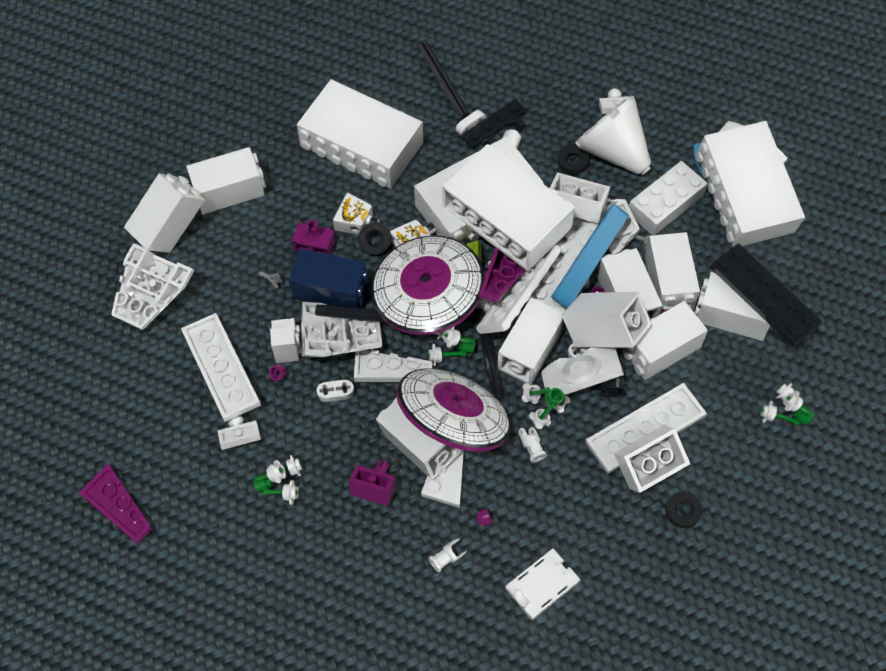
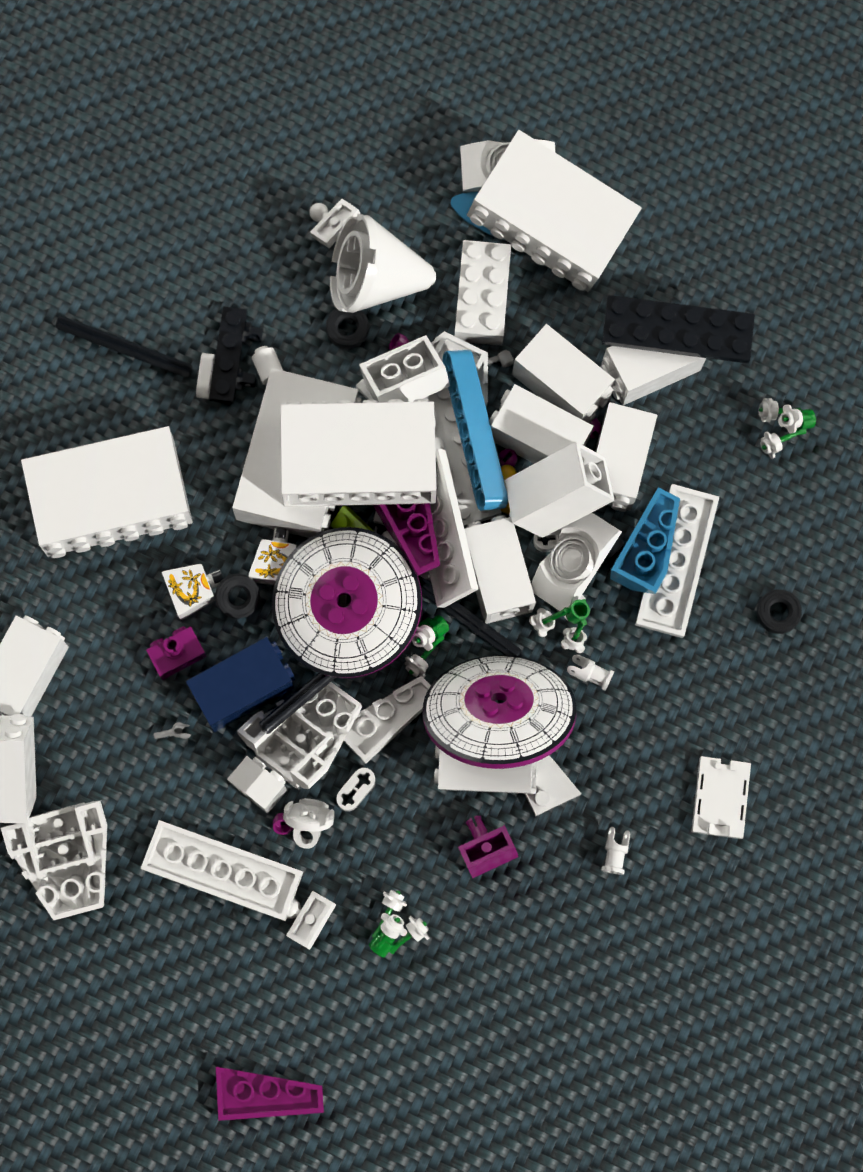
camera: 50 degrees left, 15 degrees up
(293, 379) = (308, 816): none -> white tile
(483, 517) = (614, 785): magenta hinge -> none
(631, 401) = (648, 550): none -> dark azure wedge
(652, 458) = (714, 590): white brick -> none

